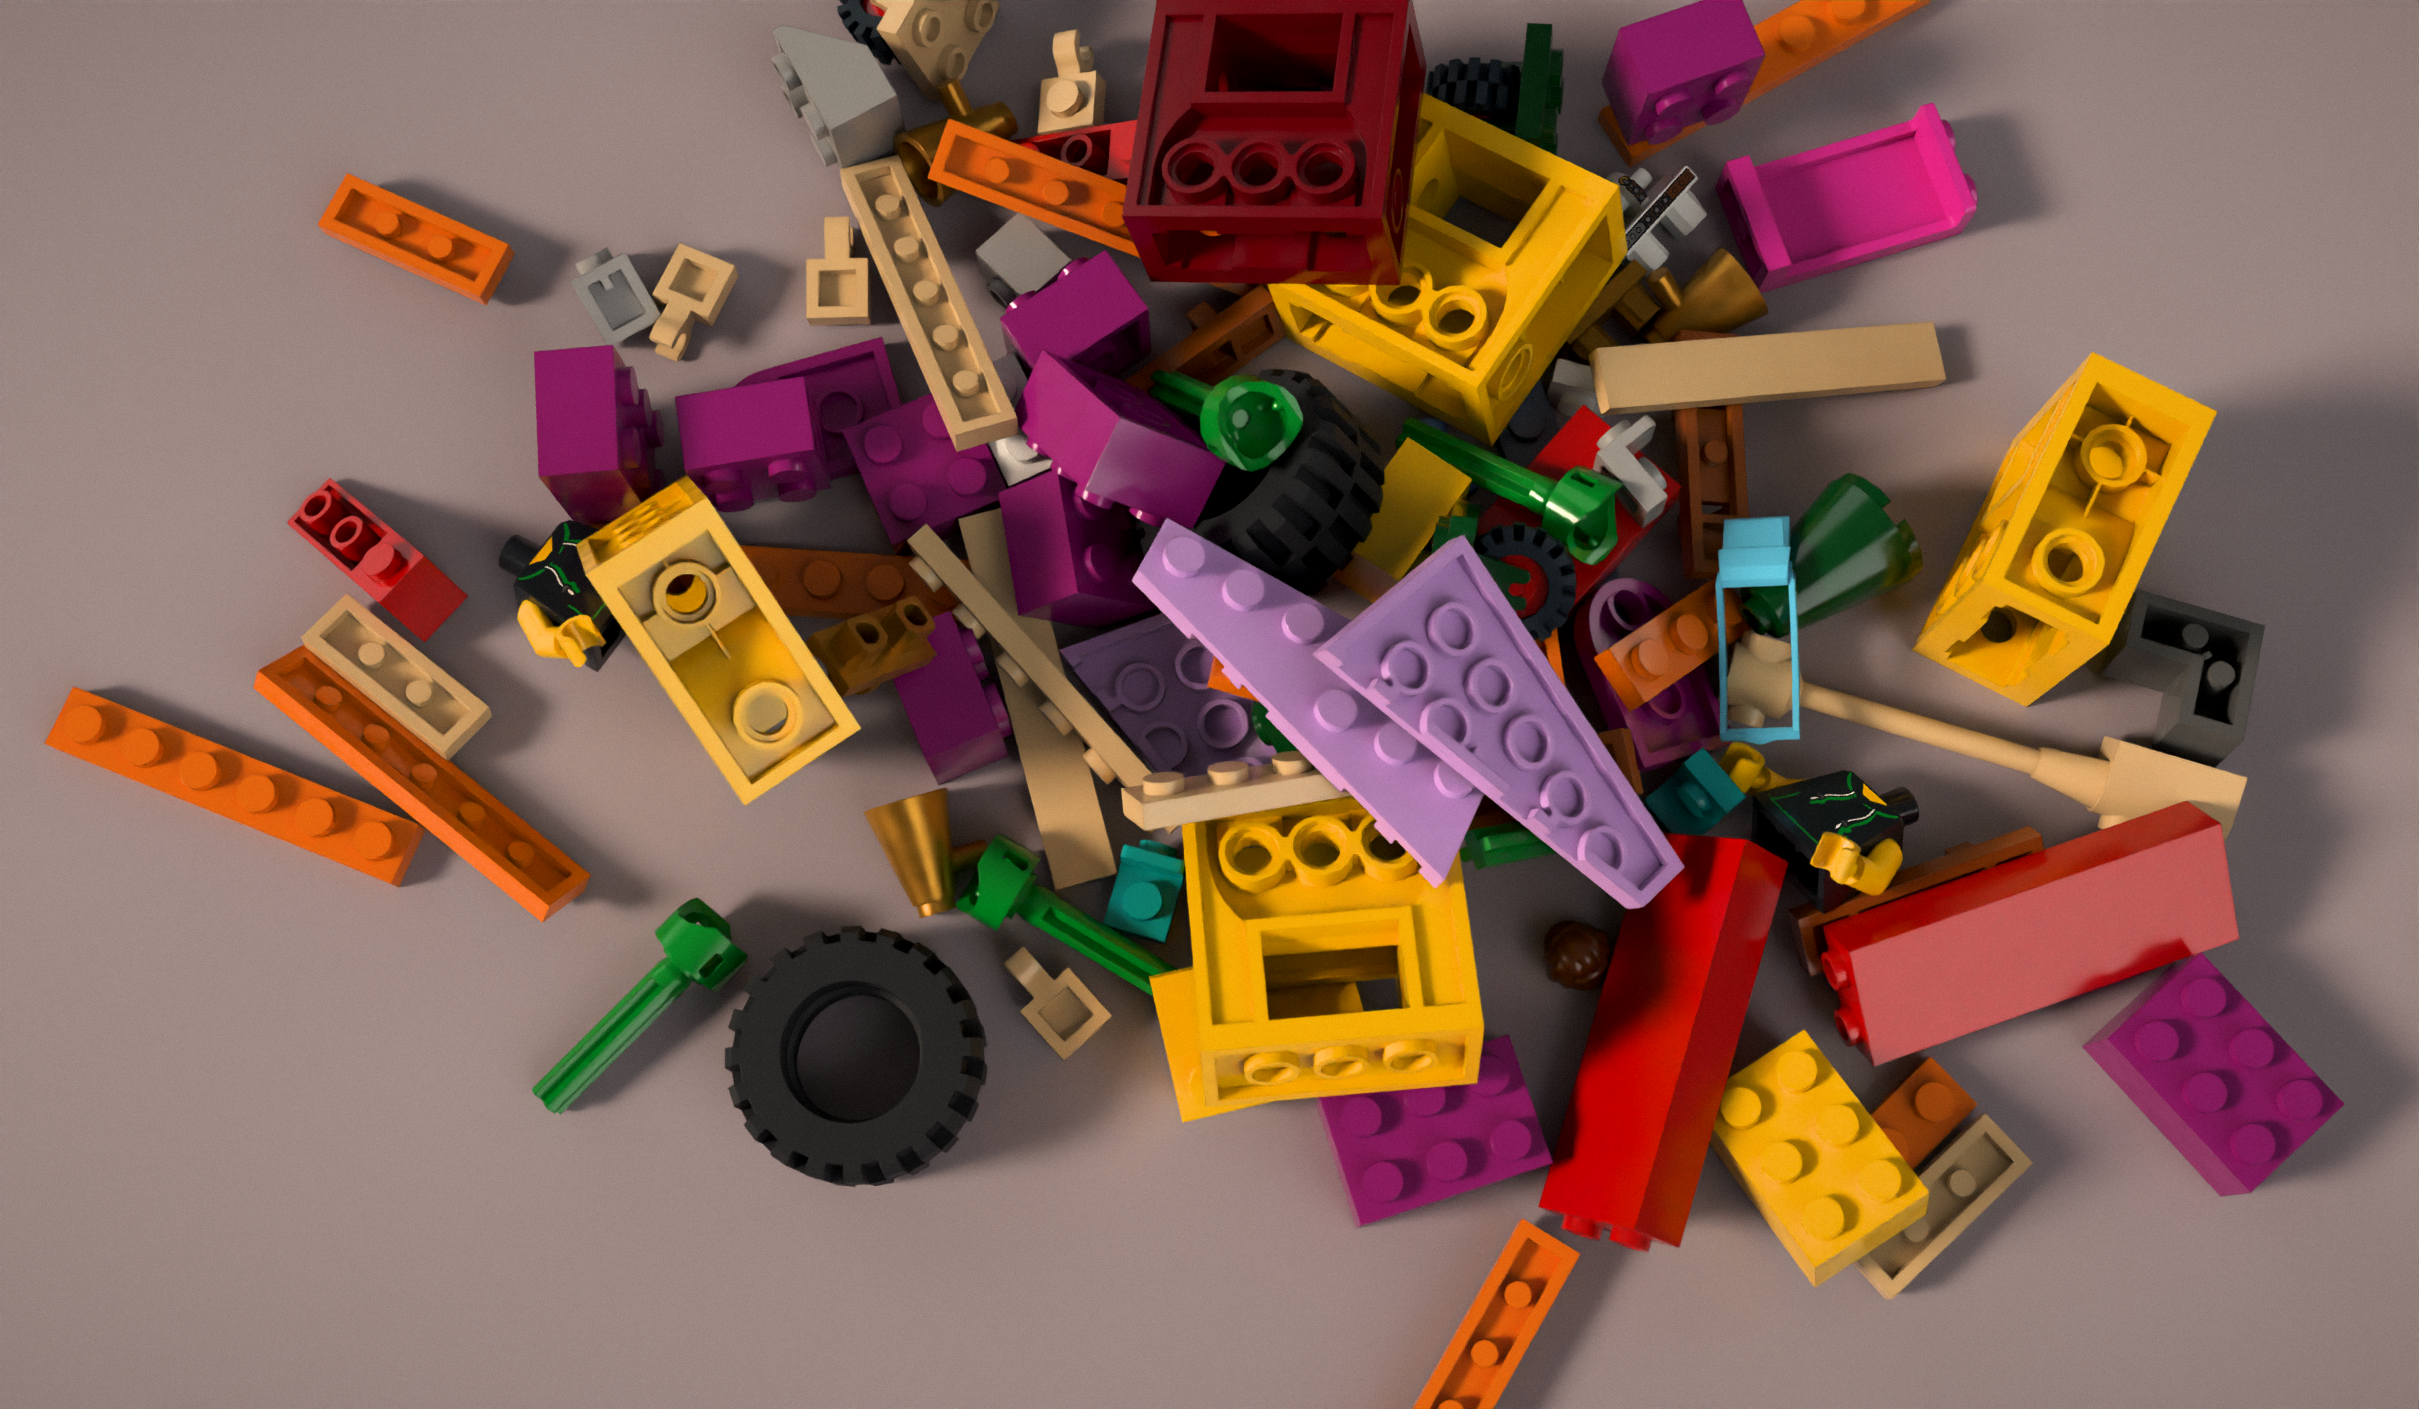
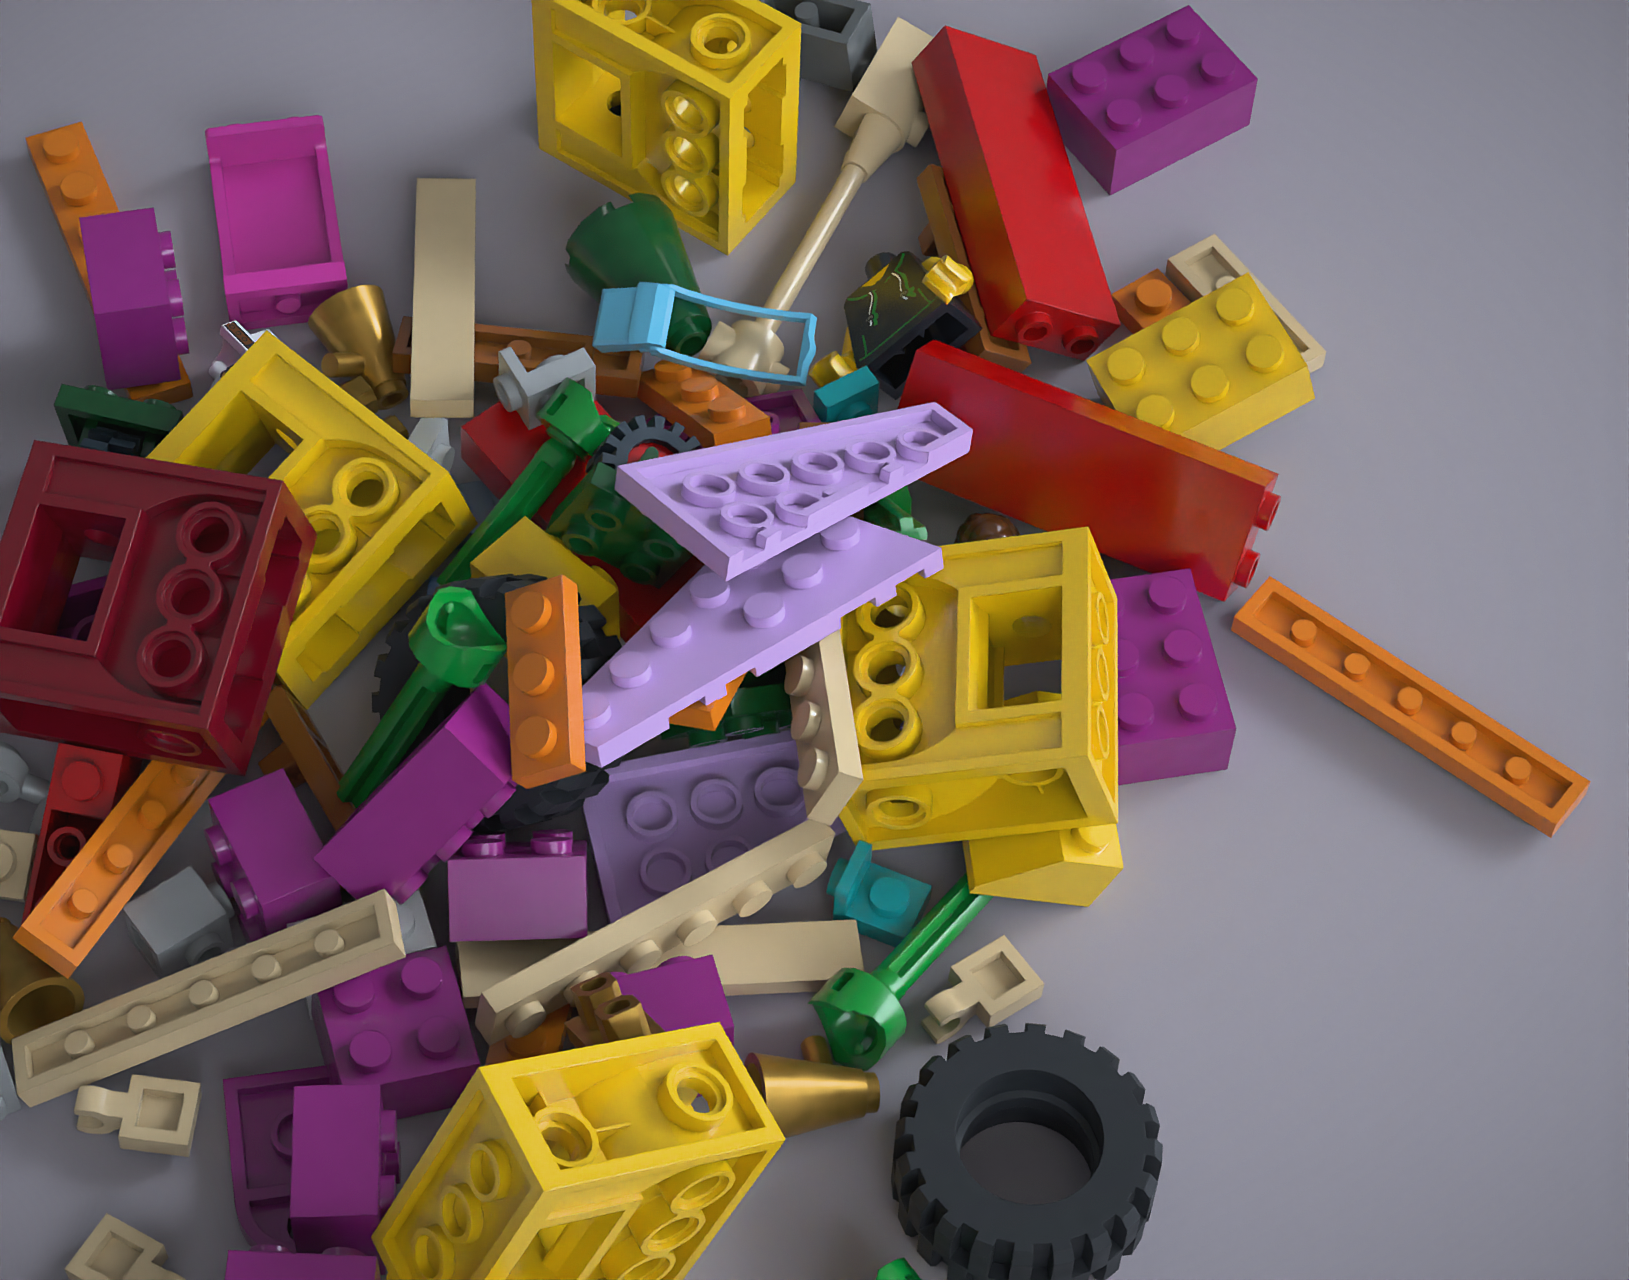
camera: 85 degrees left, 20 degrees down
(1203, 507) = (545, 682): none -> orange plate

